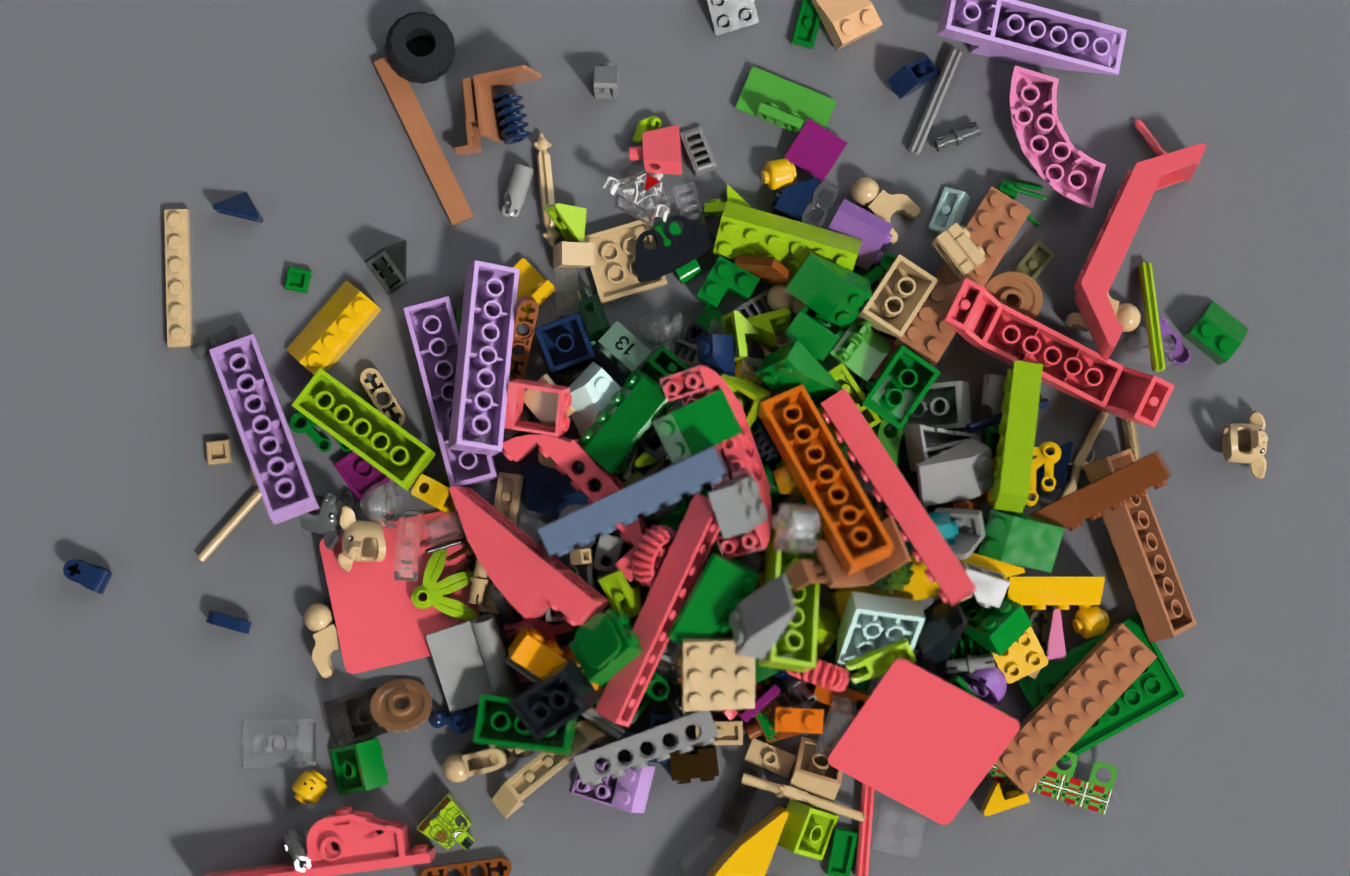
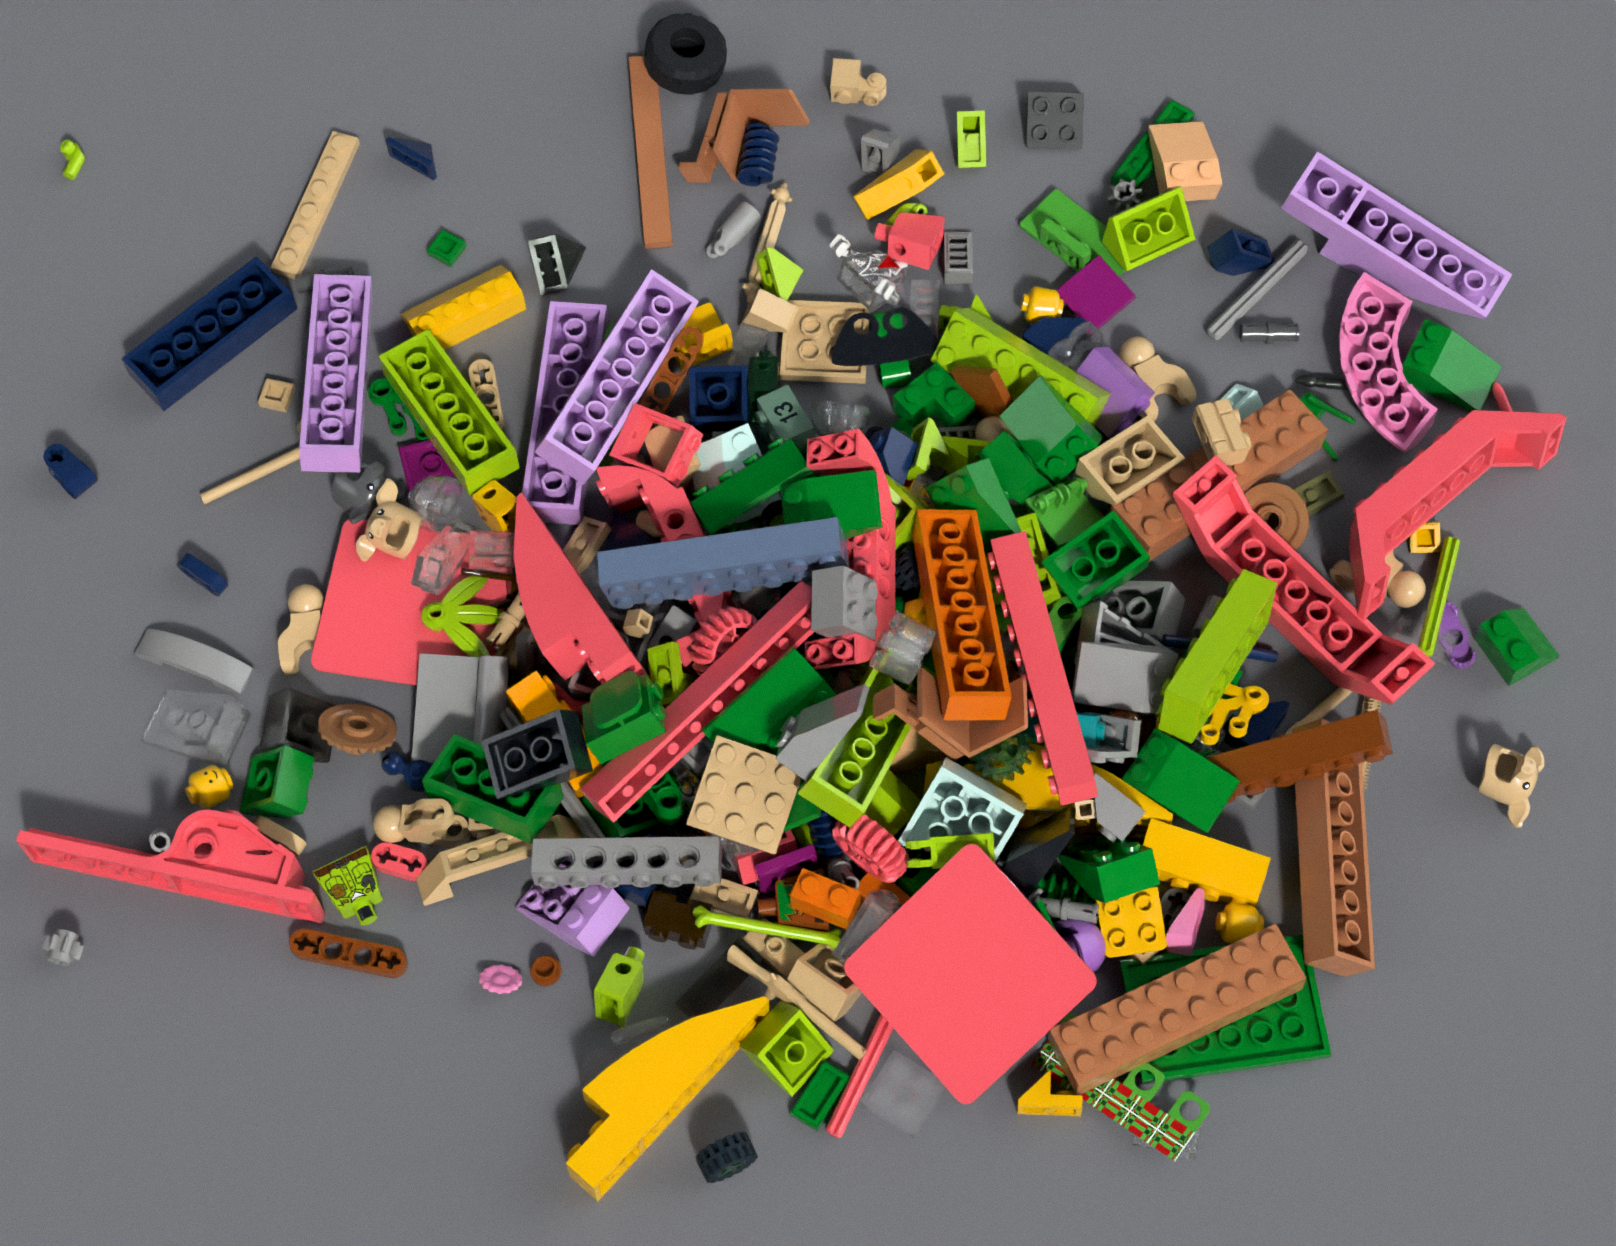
camera: 30 degrees right, 20 degrees down
(146, 423) = (209, 333): none -> dark blue brick
(252, 691) = (195, 658): none -> light grey slope
(377, 805) = (281, 835): none -> tan beam
(473, 797) = (402, 855): none -> coral beam
(559, 30) = (849, 86): none -> tan brick
(583, 853) = (500, 979): none -> bright pink piece
(613, 833) = (545, 970): none -> dark orange plate
(632, 104) = (899, 183): none -> yellow slope
(673, 47) = (971, 139): none -> lime slope
(673, 839) = (619, 986): none -> lime torso
(717, 761) = (706, 917): none -> lime piece
(805, 51) = (1124, 189): none -> light grey gear
(839, 83) = (1149, 229): none -> lime slope
(1011, 163) = (1322, 382): none -> pearl dark grey piece
(1099, 120) = (1449, 367): none -> green slope
(1127, 269) = (1426, 538): none -> yellow slope

